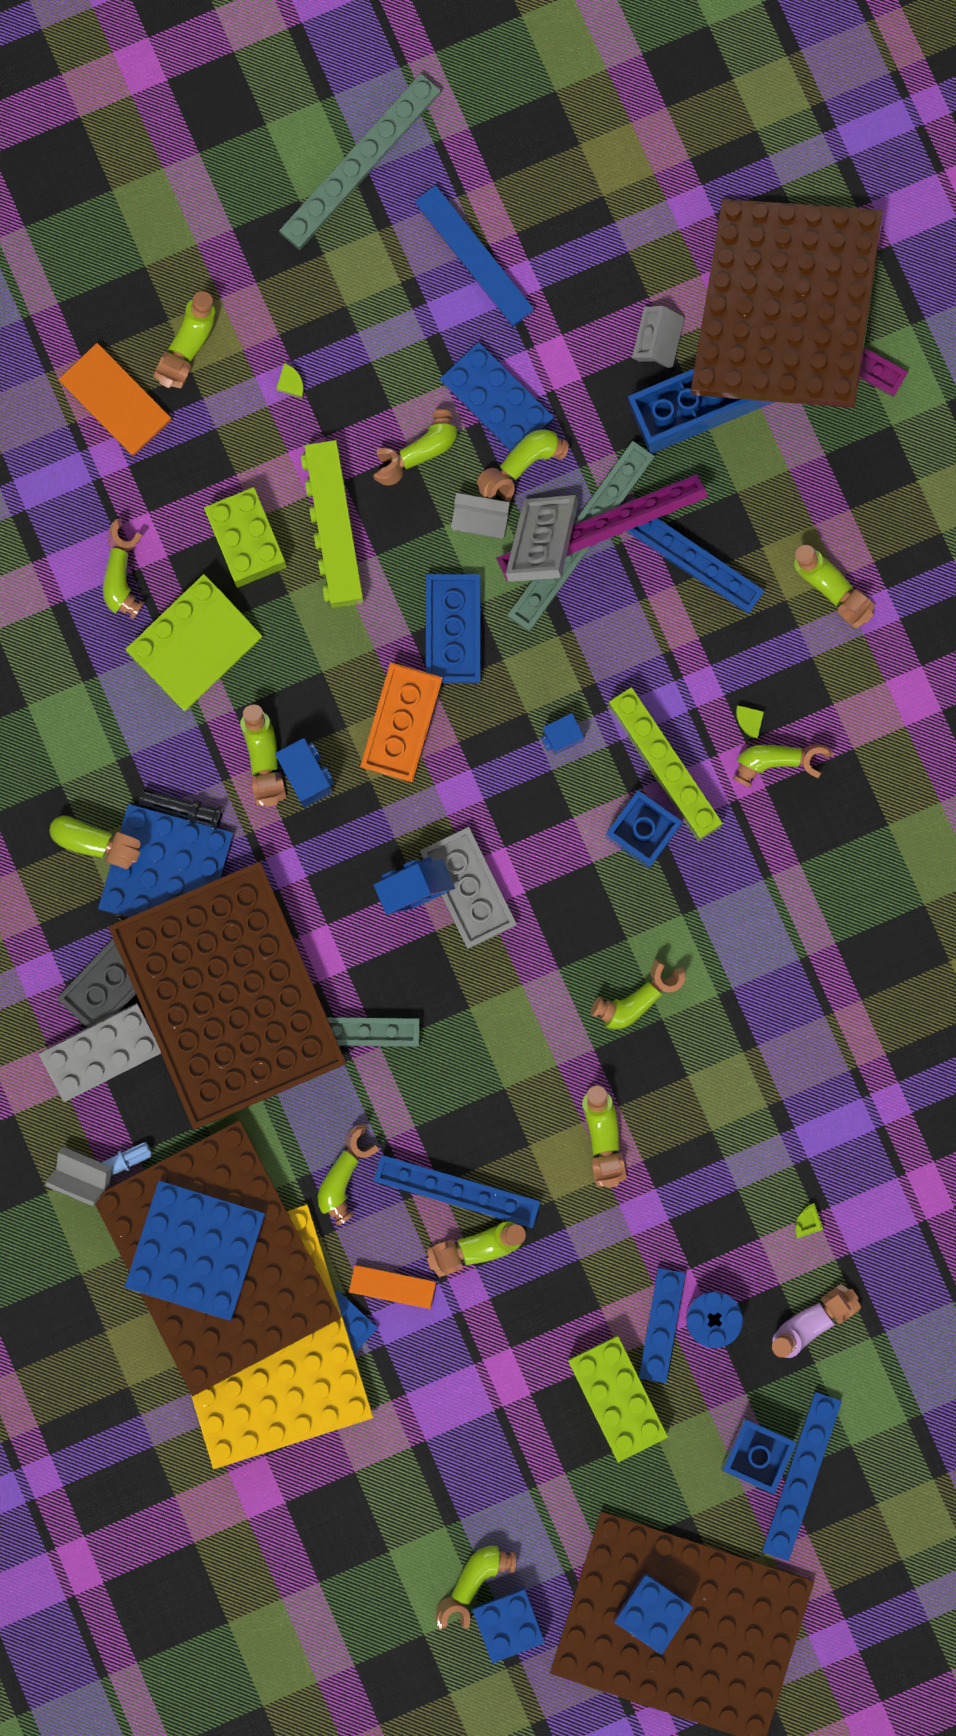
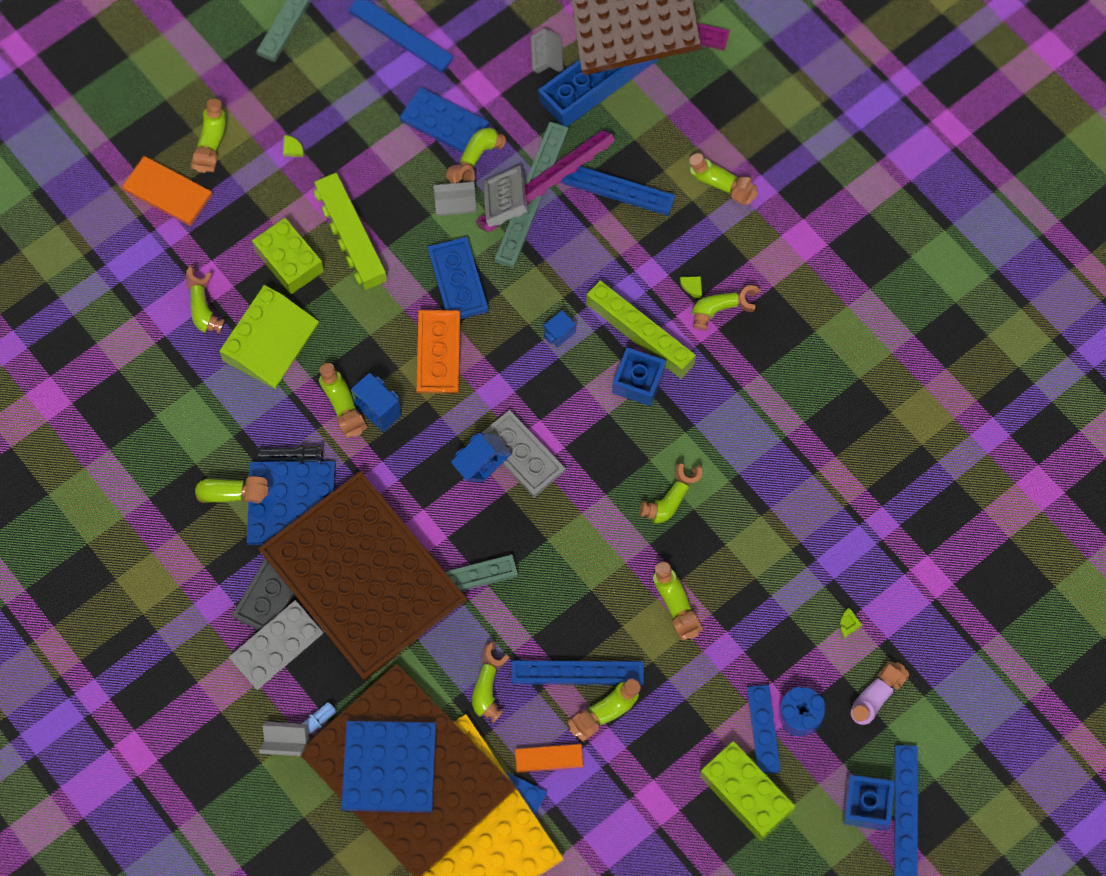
camera: 20 degrees left, 15 degrees down
(435, 442) = (408, 157): piece -> none

